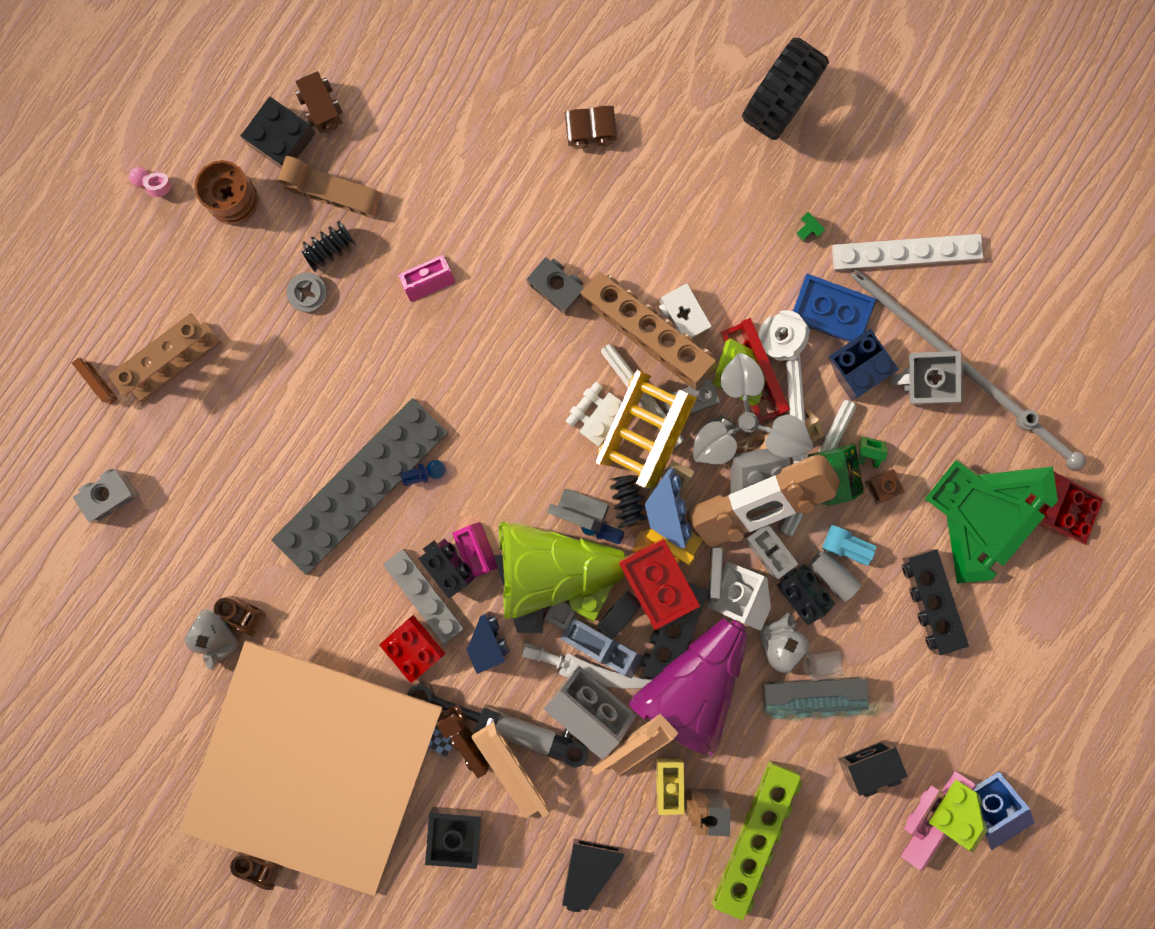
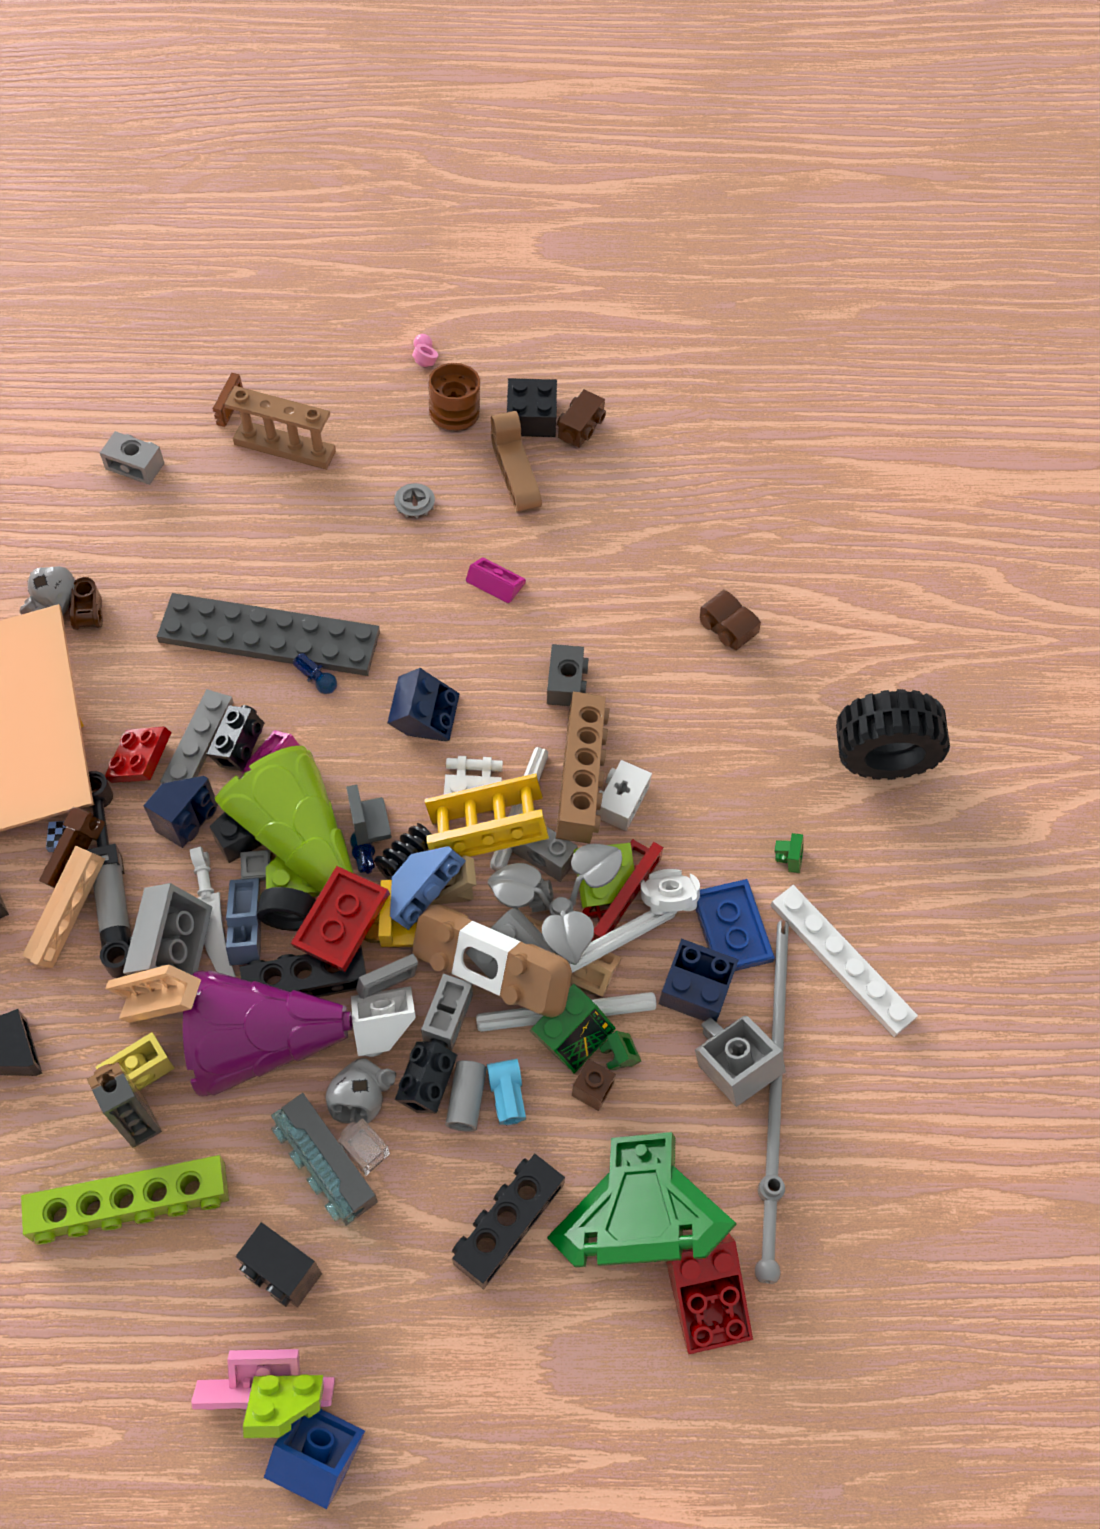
camera: 55 degrees right, 25 degrees down
(327, 246) = (464, 491): black piece -> none
(510, 410) = (423, 706): none -> dark blue slope

